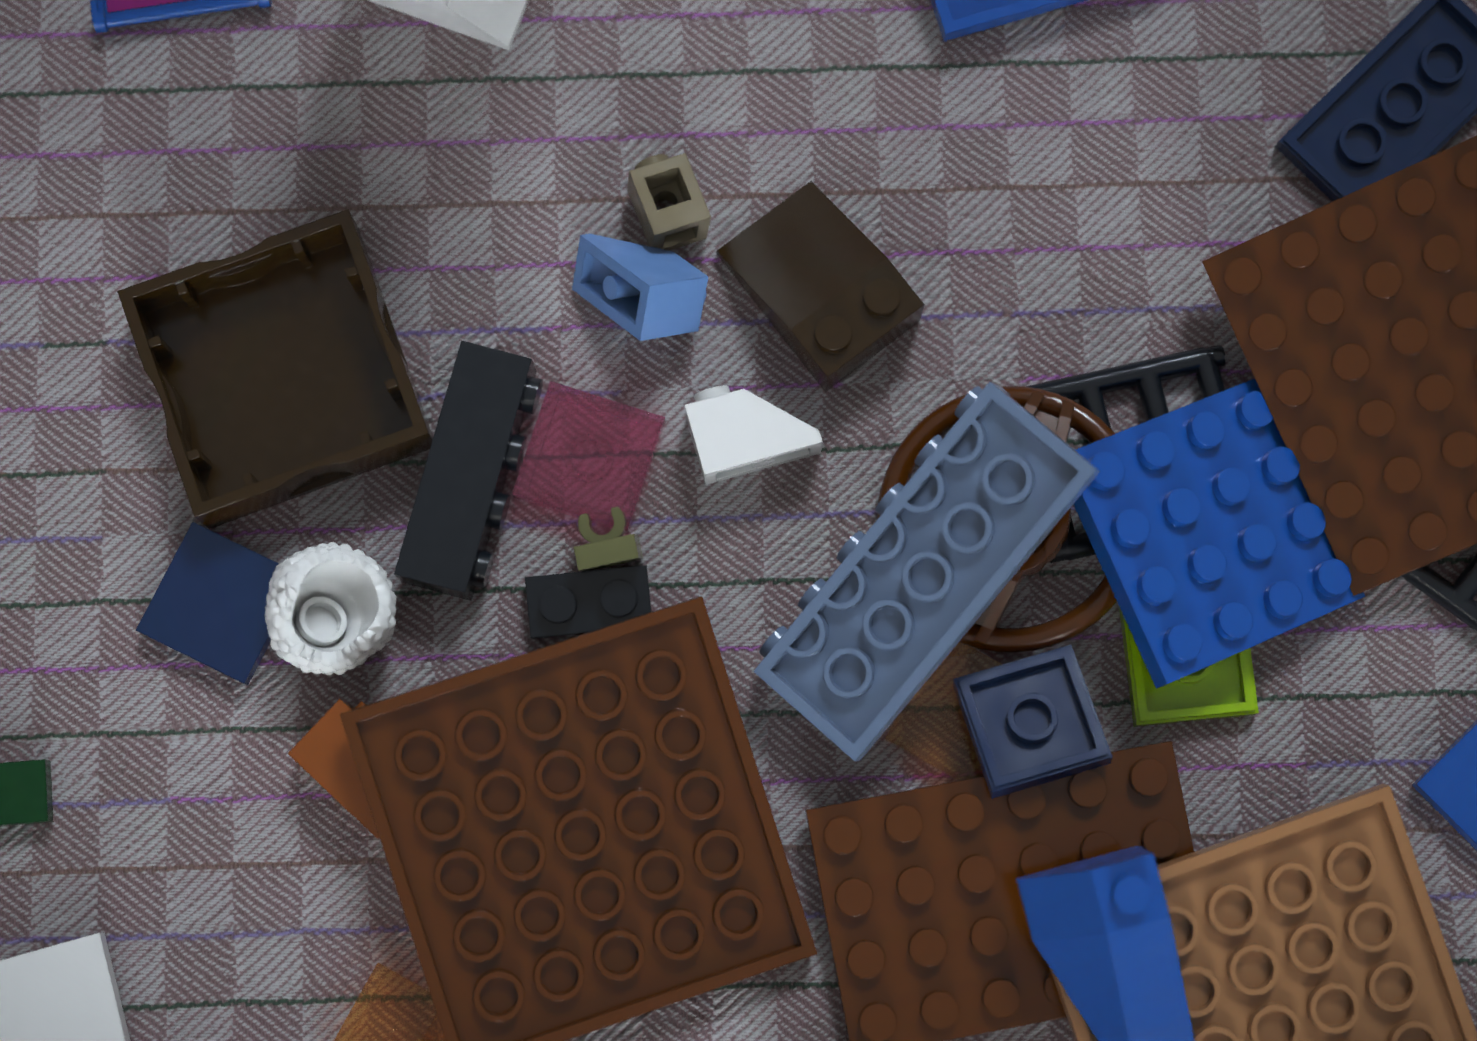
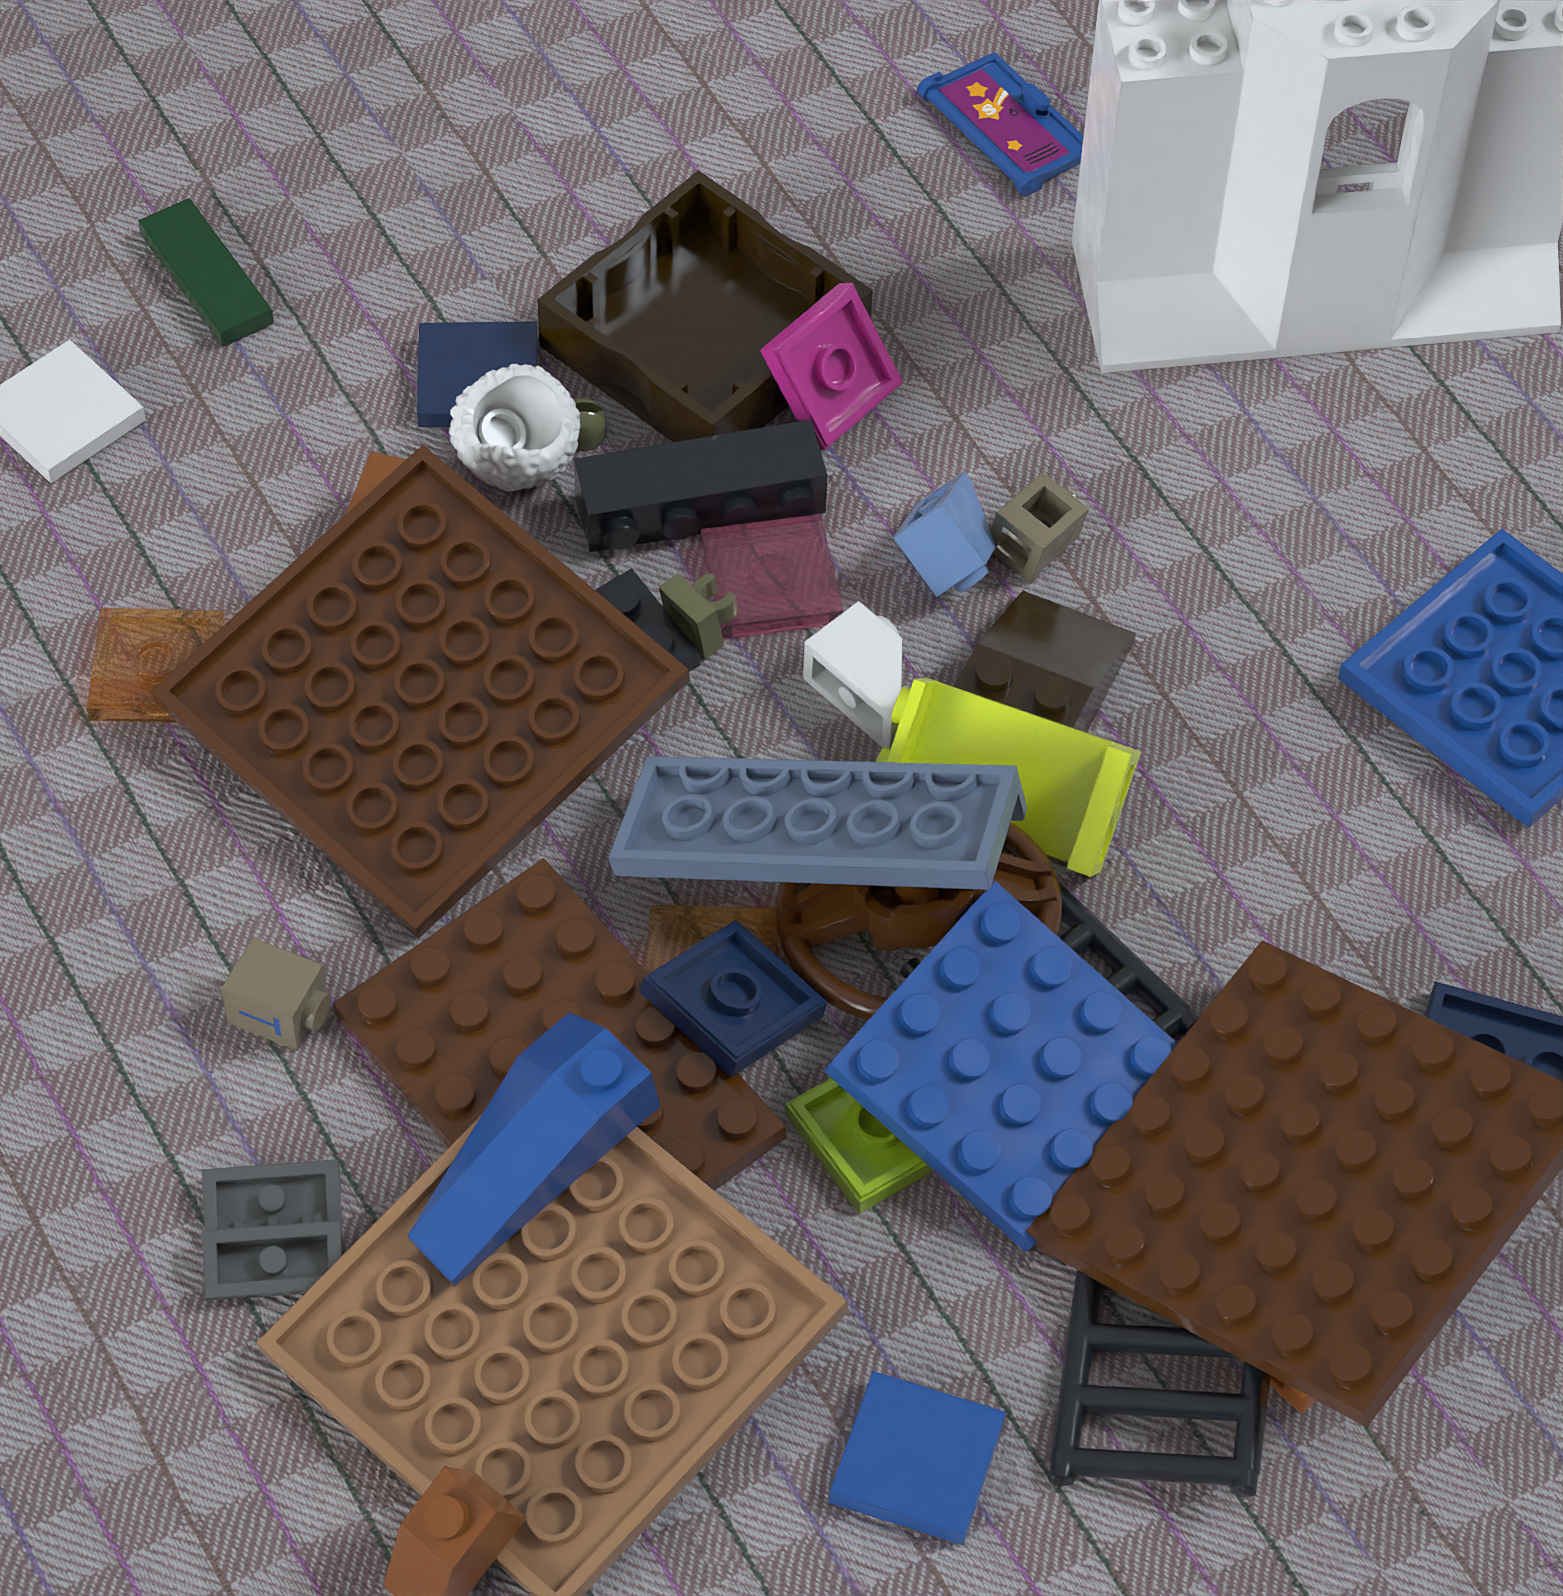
camera: 60 degrees right, 25 degrees down
(342, 533) = (593, 424): none -> olive hinge
(406, 288) = (832, 364): none -> dark pink tile
(931, 354) = (1067, 776): none -> neon yellow panel

